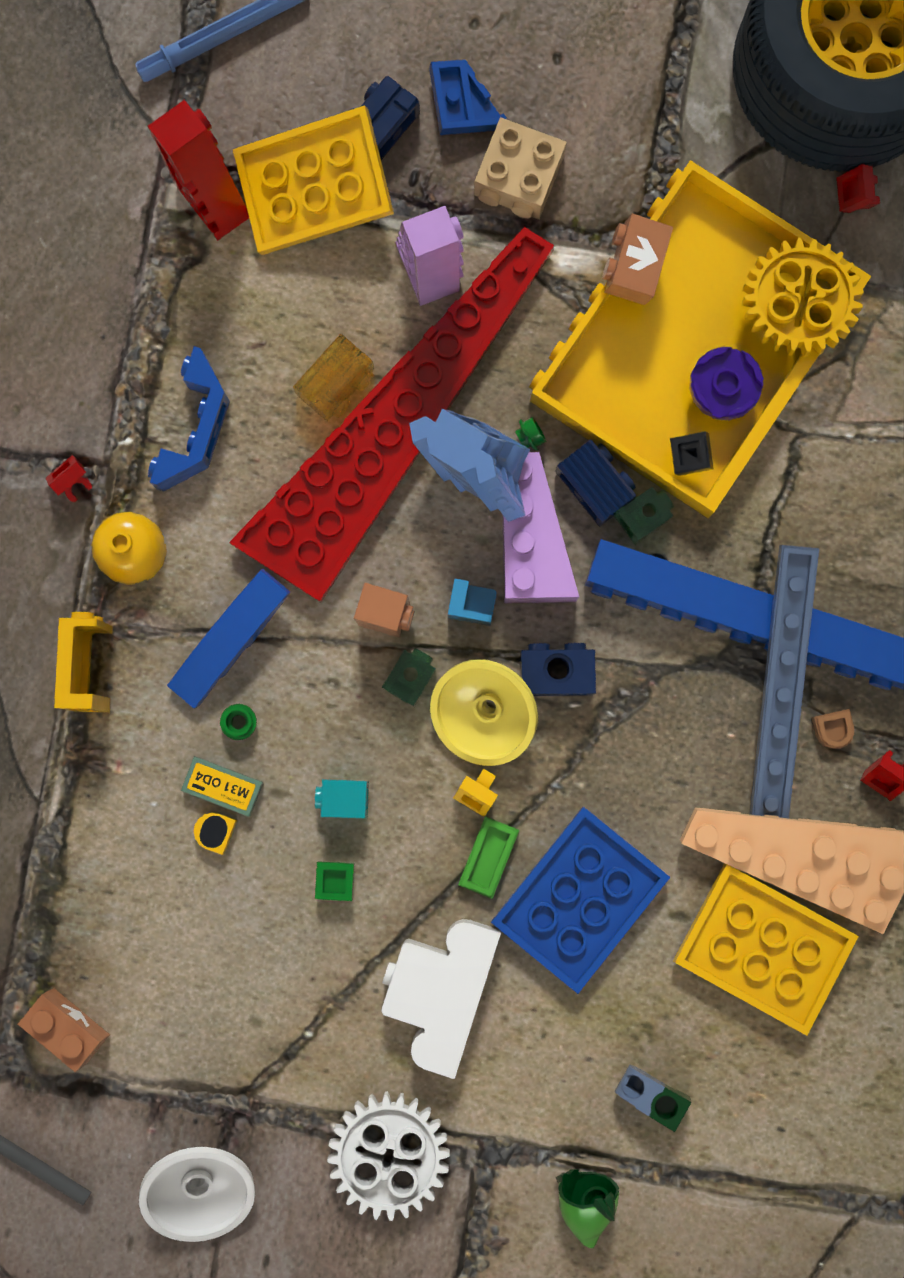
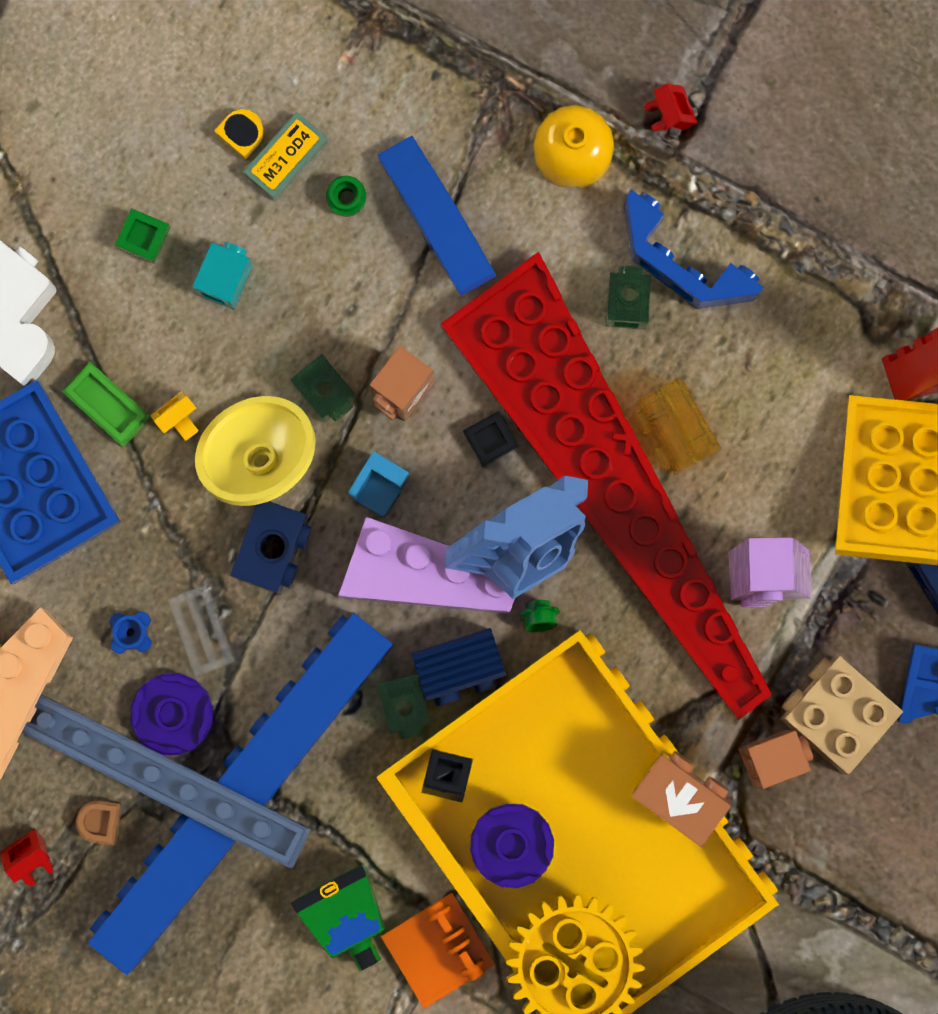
camera: 105 degrees right, 0 degrees up
(75, 662) = (465, 46): yellow panel -> none
(254, 461) = (625, 313): none -> clear green brick
(399, 527) = (490, 439): none -> black tile
(576, 201) = (776, 758): none -> nougat brick
(623, 724) = (213, 664): none -> clear tile
(680, 767) = (121, 624): none -> blue plate
(724, 703) = (172, 714): none -> dark purple tile
(828, 417) = (438, 950): none -> orange hinge
(832, 500) = (344, 916): none -> torso

